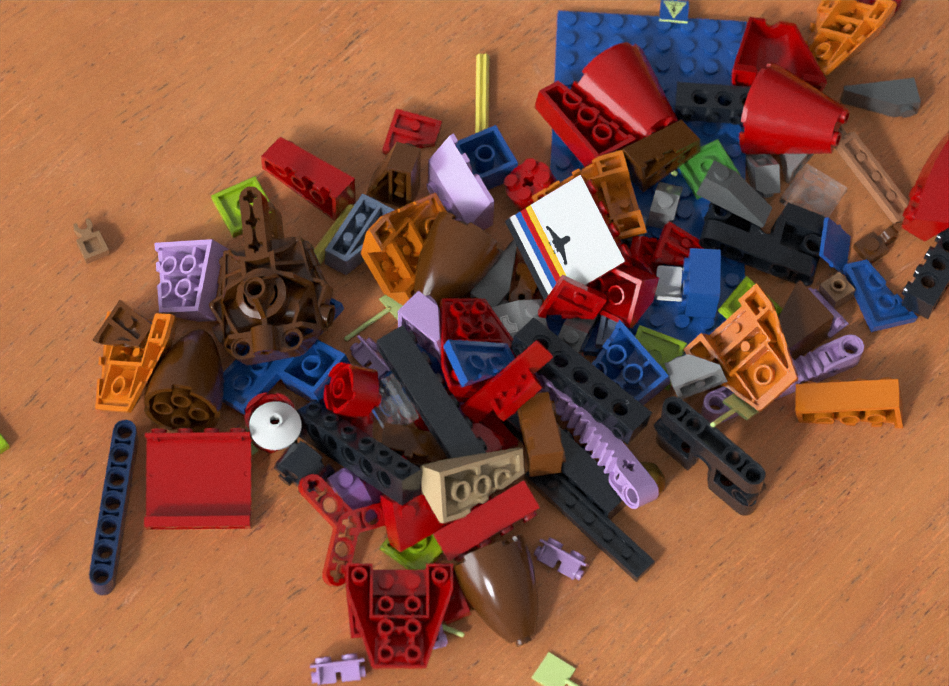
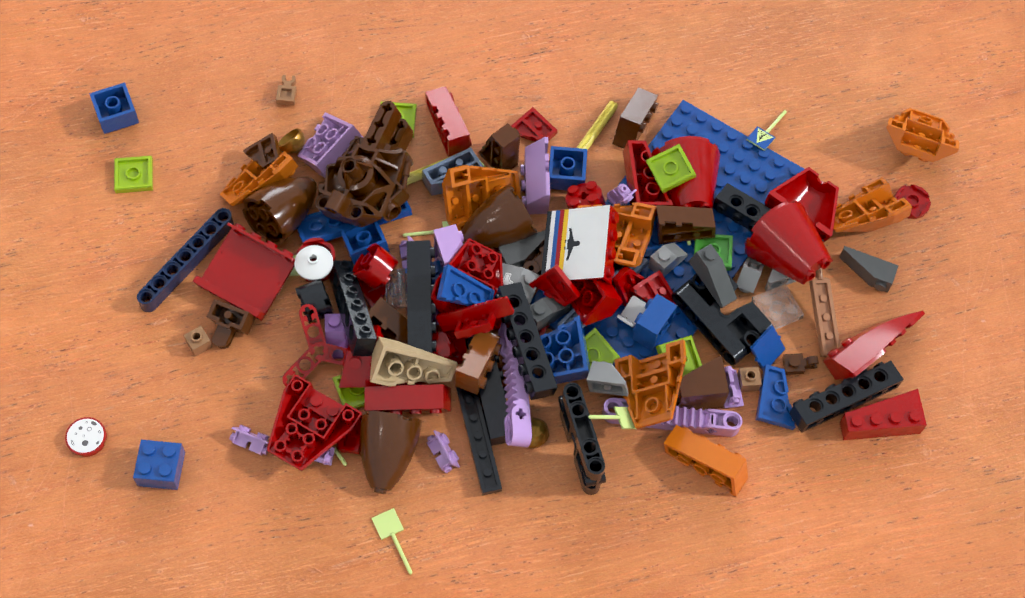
camera: 30 degrees right, 0 degrees up
(142, 296) = (292, 141): none -> pearl gold piece
(198, 599) = (198, 341): none -> medium nougat plate
(219, 548) = (228, 321): none -> reddish brown brick
(522, 60) = (635, 117): none -> wedge
(570, 159) = (620, 194): none -> lavender hinge
(609, 97) = (671, 168): none -> lime tile

